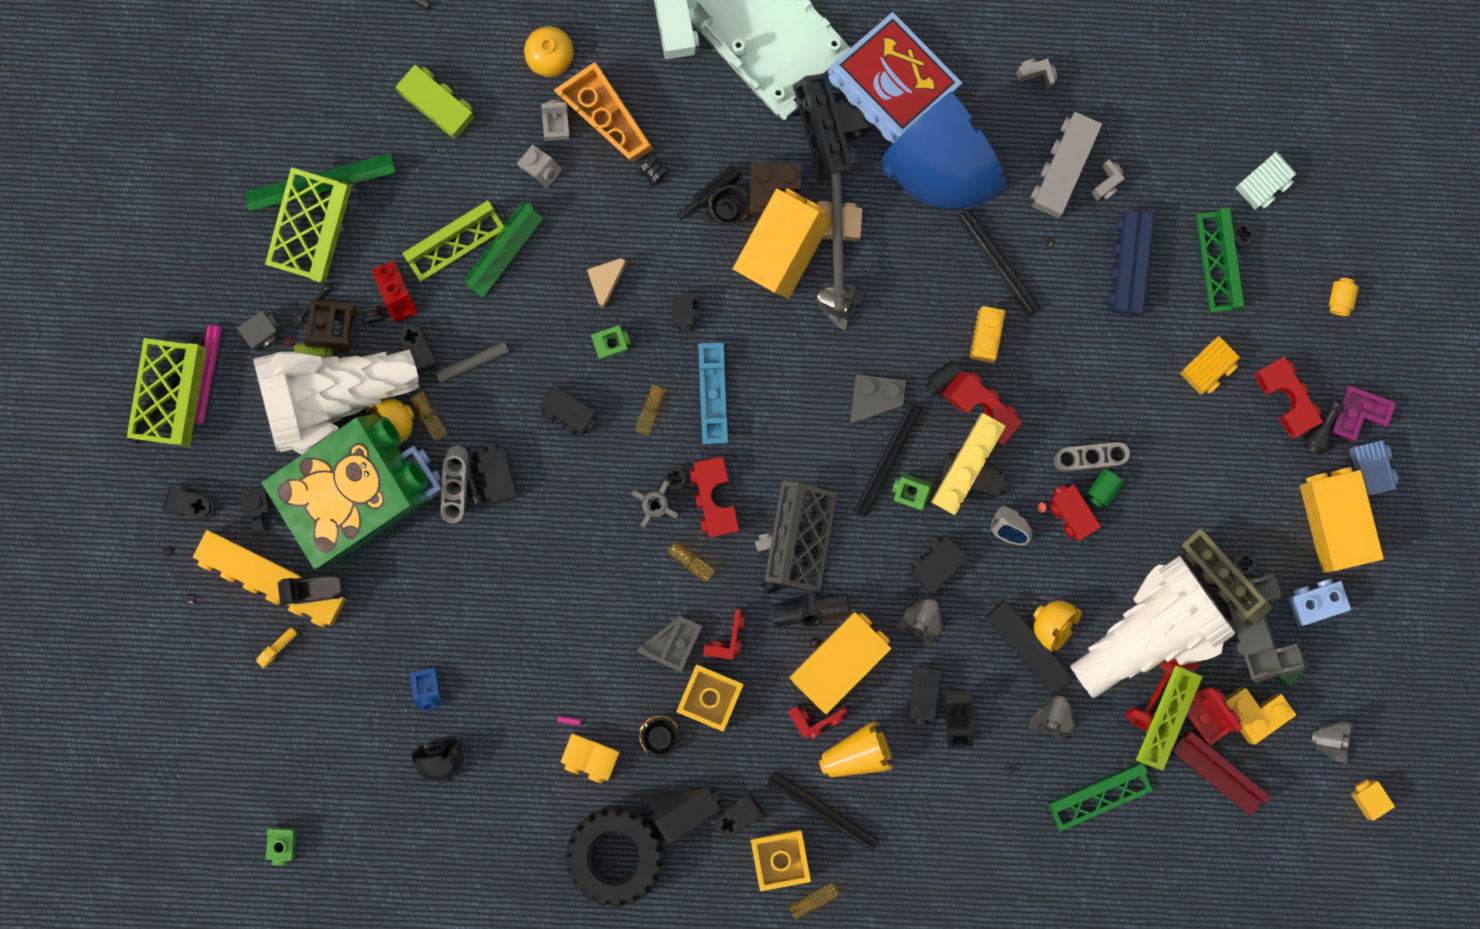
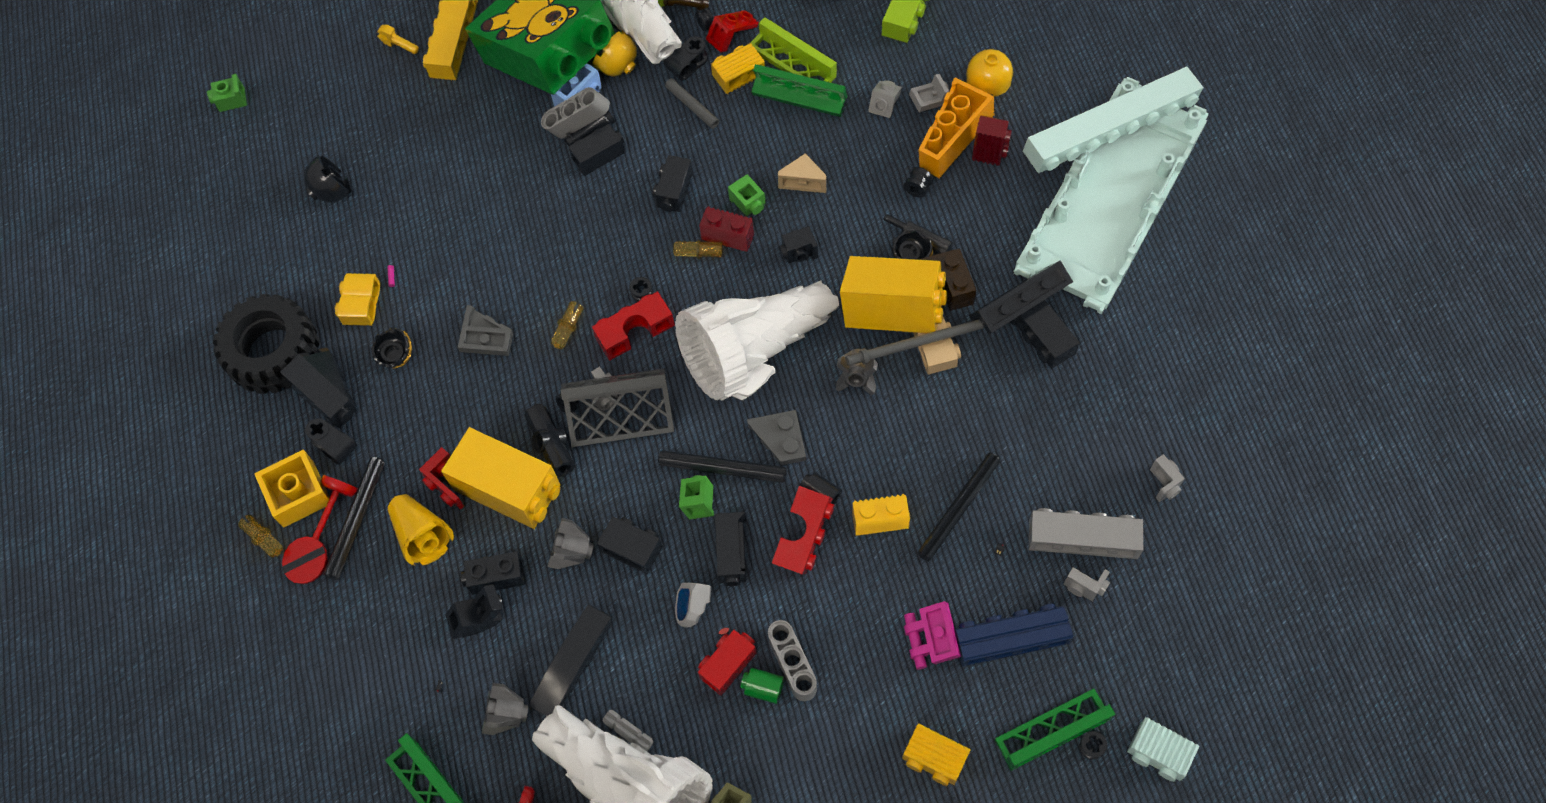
camera: 85 degrees right, 20 degrees down
(309, 589) = (446, 30): black animal -> none
(426, 689) = (389, 154): blue bracket -> none
(428, 416) = (632, 85): clear yellow axle -> none
(448, 301) = (736, 68): none -> yellow brick
(638, 83) = (991, 140): none -> dark red brick
(642, 374) = (727, 228): none -> dark red brick
(651, 497) = (608, 273): flat silver brick -> none
(709, 698) = (438, 377): yellow brick -> none
(712, 393) = (759, 284): dark azure slope -> none
(718, 649) = (495, 384): red bracket -> none
(780, 409) = (734, 337): none -> white cone
(847, 864) = (307, 556): none -> red piece
(892, 77) = (1097, 342): panel -> none
(945, 159) = (1039, 408): blue brick -> none
(968, 463) = (737, 527): light yellow brick -> none
(1054, 623) = (602, 679): yellow cylinder -> none
(1103, 616) = (627, 730): none -> light grey axle
(1112, 324) = (939, 633): none -> dark pink plate

